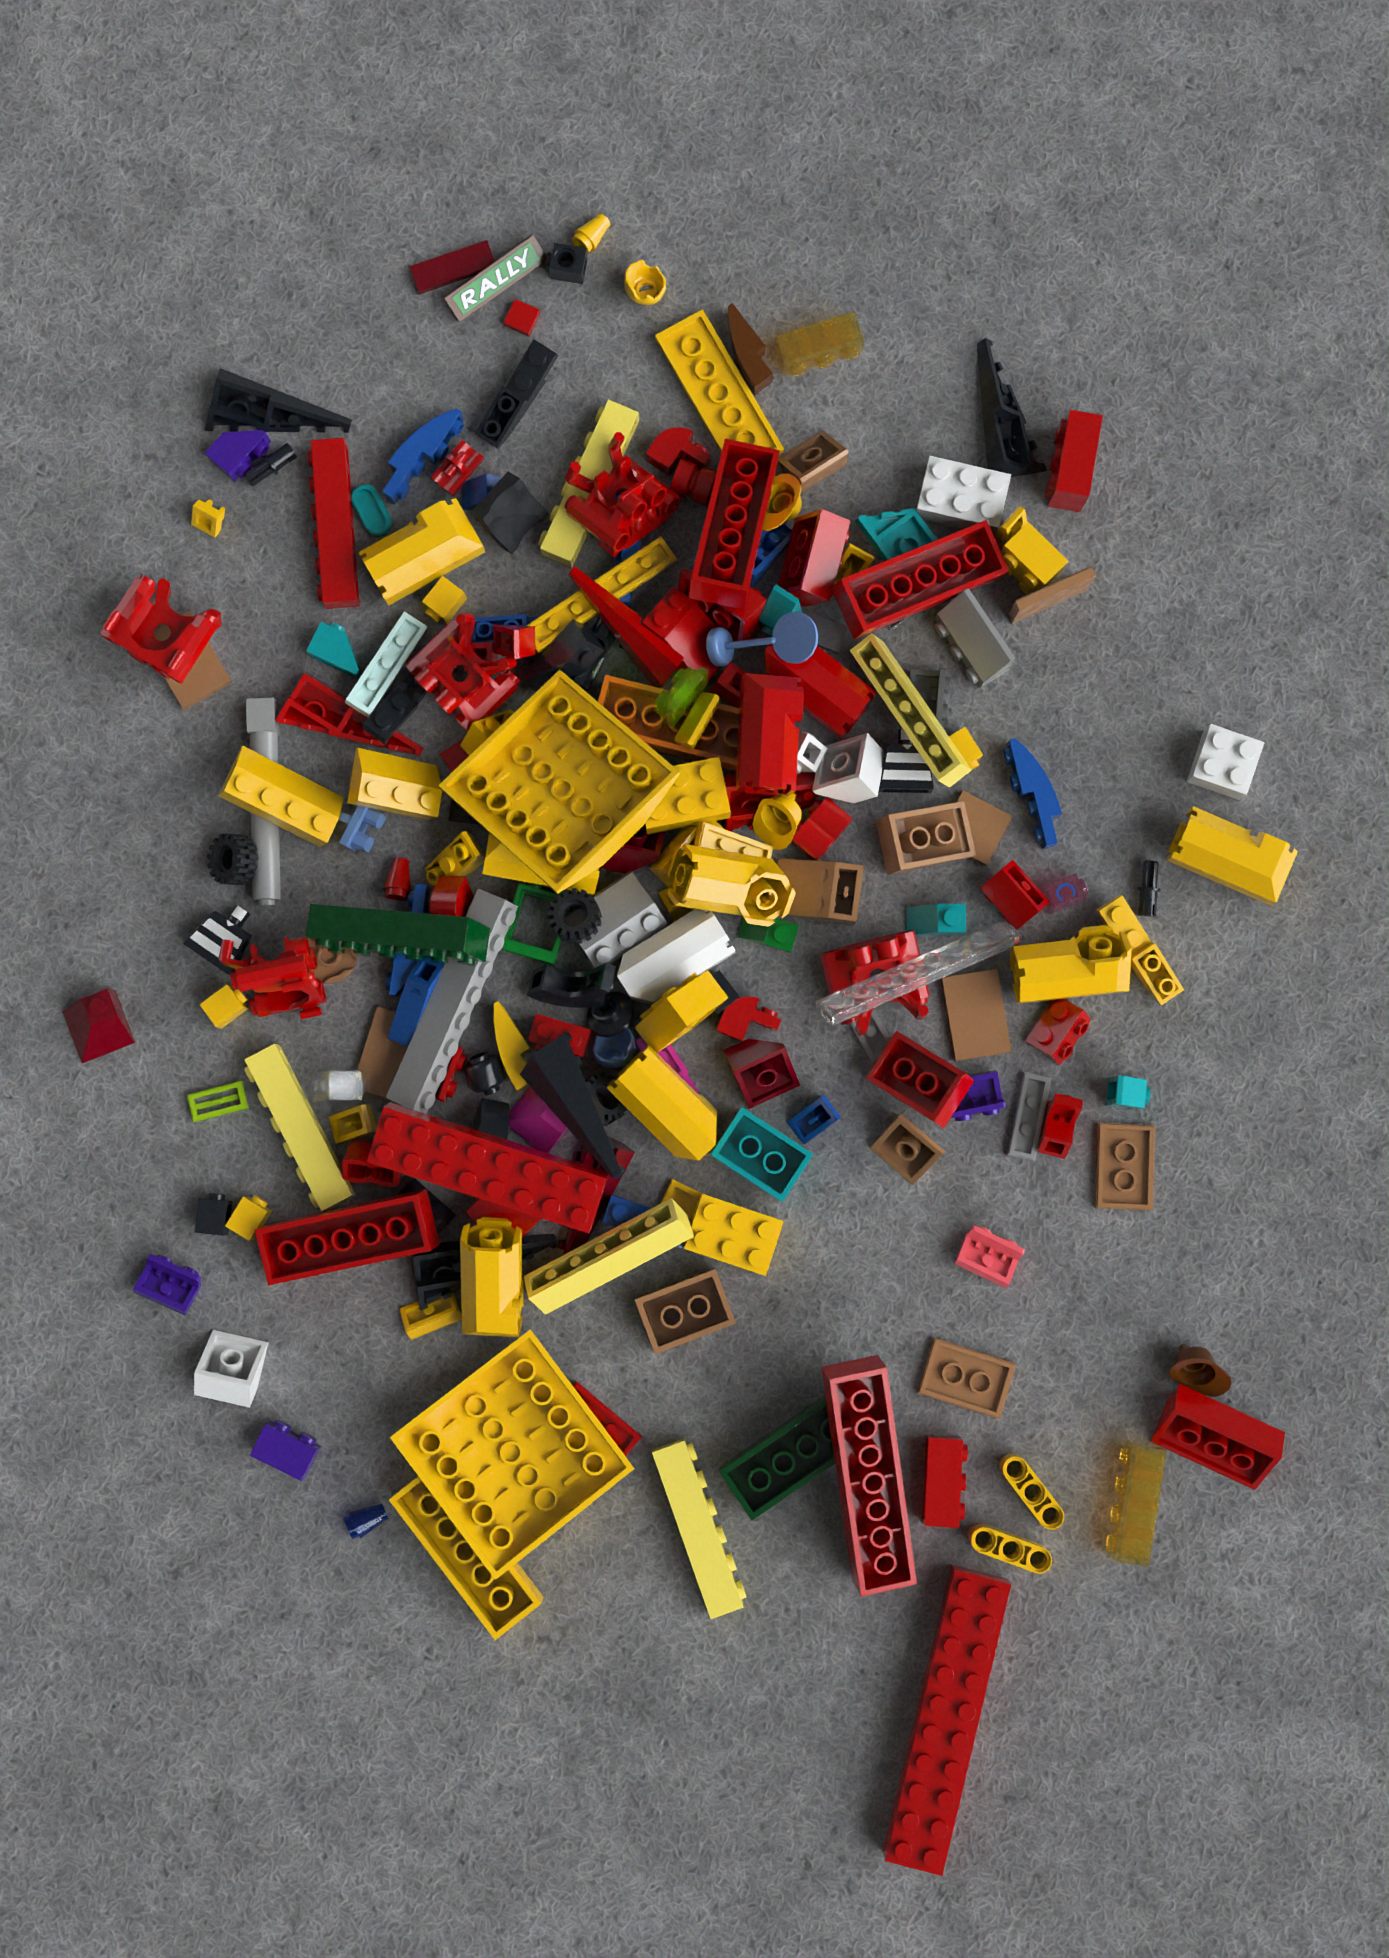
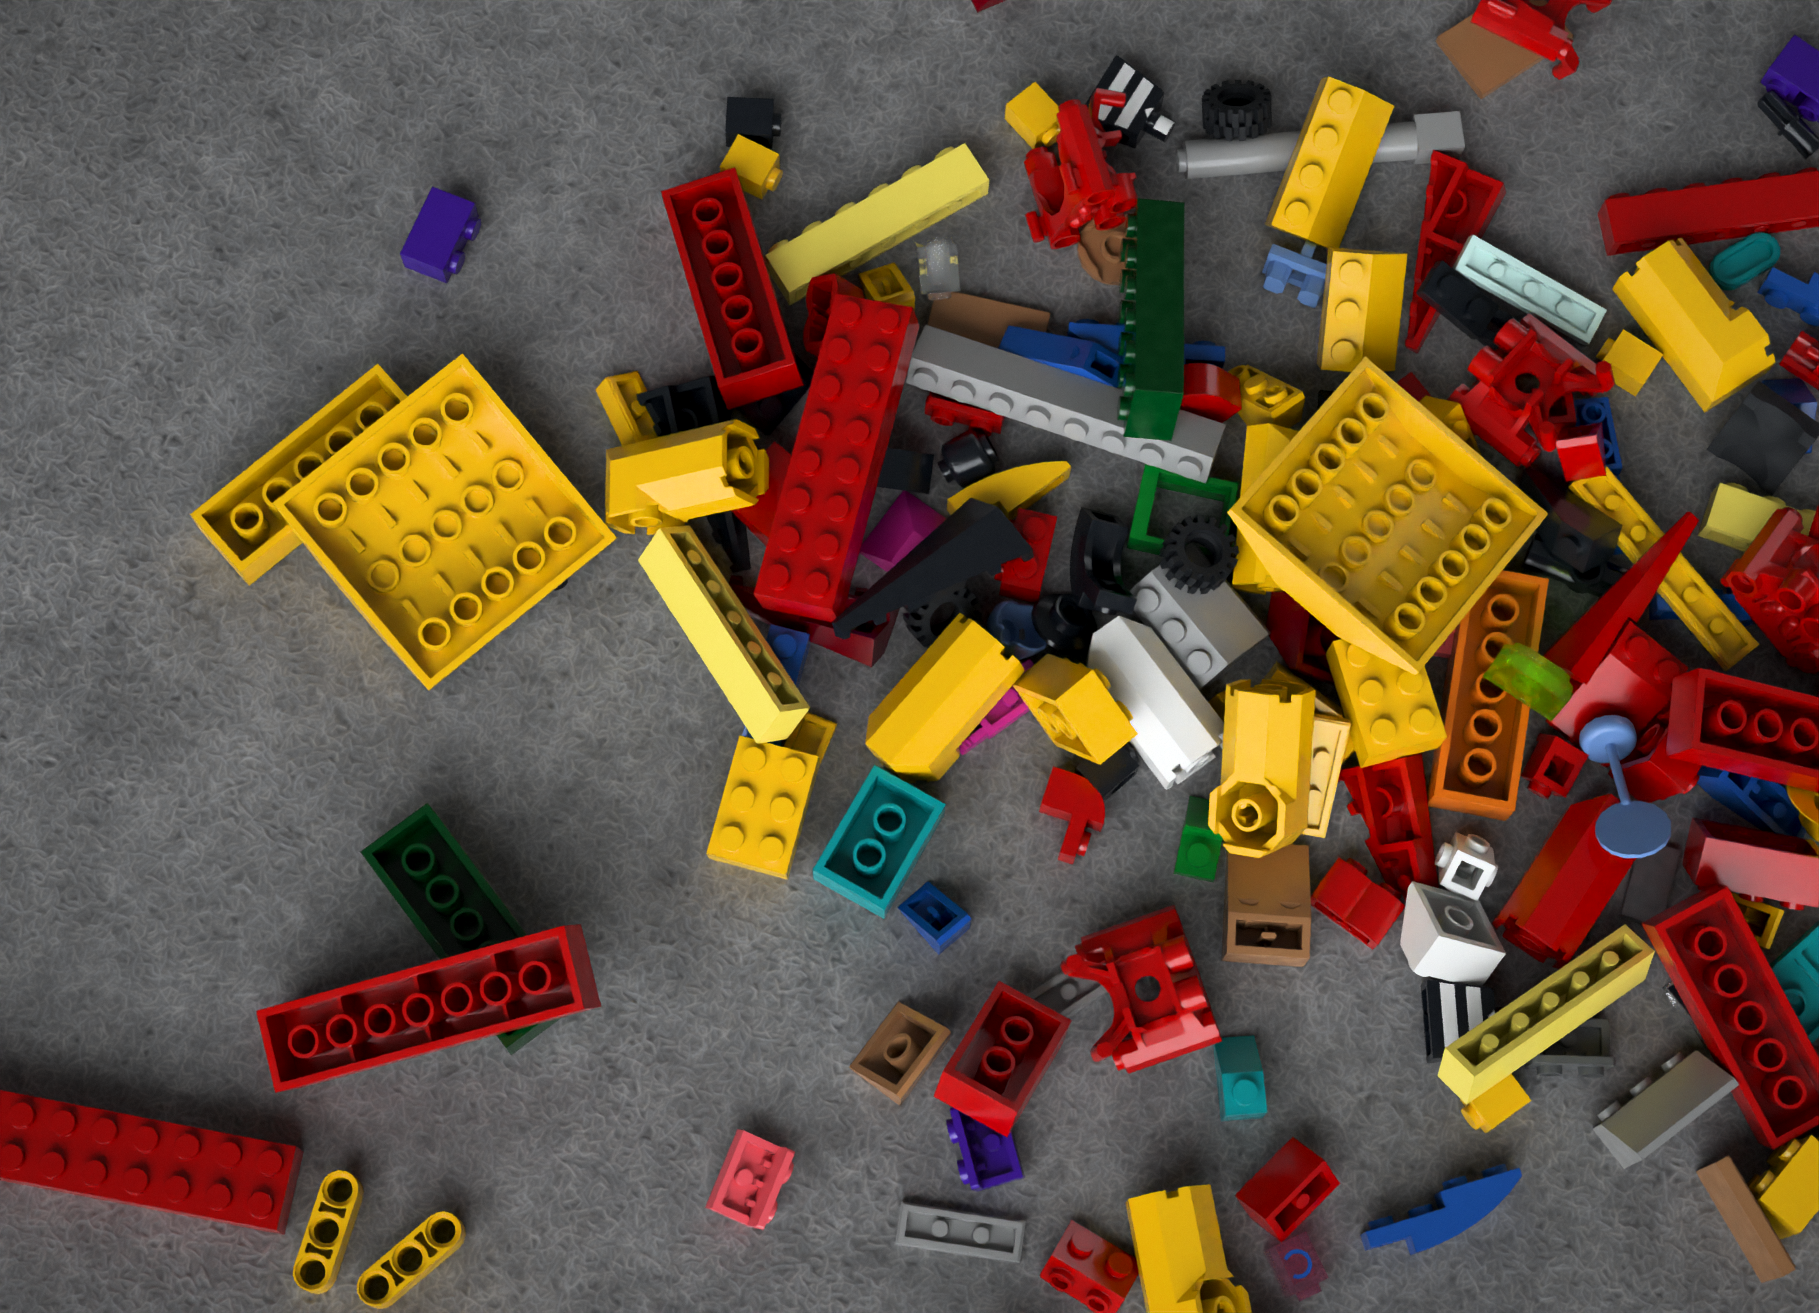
camera: 80 degrees right, 10 degrees down
(168, 1284) = (656, 73): dark purple bracket -> none
(194, 1107) = (915, 148): lime tile -> none
(207, 517) = (1704, 49): yellow tile -> none
(230, 1368) = (547, 157): white slope -> none
(334, 649) = (1543, 222): teal slope -> none
(365, 1520) = (348, 343): clear blue cone -> none
(398, 880) = (1228, 328): red cone -> none
(617, 1428) = (482, 669): red tile -> none
(685, 1310) = (652, 748): medium nougat brick -> none
(697, 720) = (1496, 709): yellow slope -> none
(697, 1527) = (347, 787): light yellow brick -> none
(761, 1070) = (999, 835): dark red slope -> none
(768, 733) = (1487, 801): red brick -> none
(777, 820) = (1365, 836): yellow piece -> none
(778, 604) = (1683, 813): teal slope -> none
(917, 972) = (1160, 1043): clear plate -> none
(925, 837) = (1360, 1054): medium nougat slope -> none
(944, 1481) = (422, 1130): red brick -> none
(966, 1378) = (572, 1159): medium nougat tile -> none
(976, 1014) = (1104, 1146): medium nougat tile -> none
(986, 825) = (1381, 1129): medium nougat tile -> none
(1059, 1125) = (949, 1273): red brick -> none

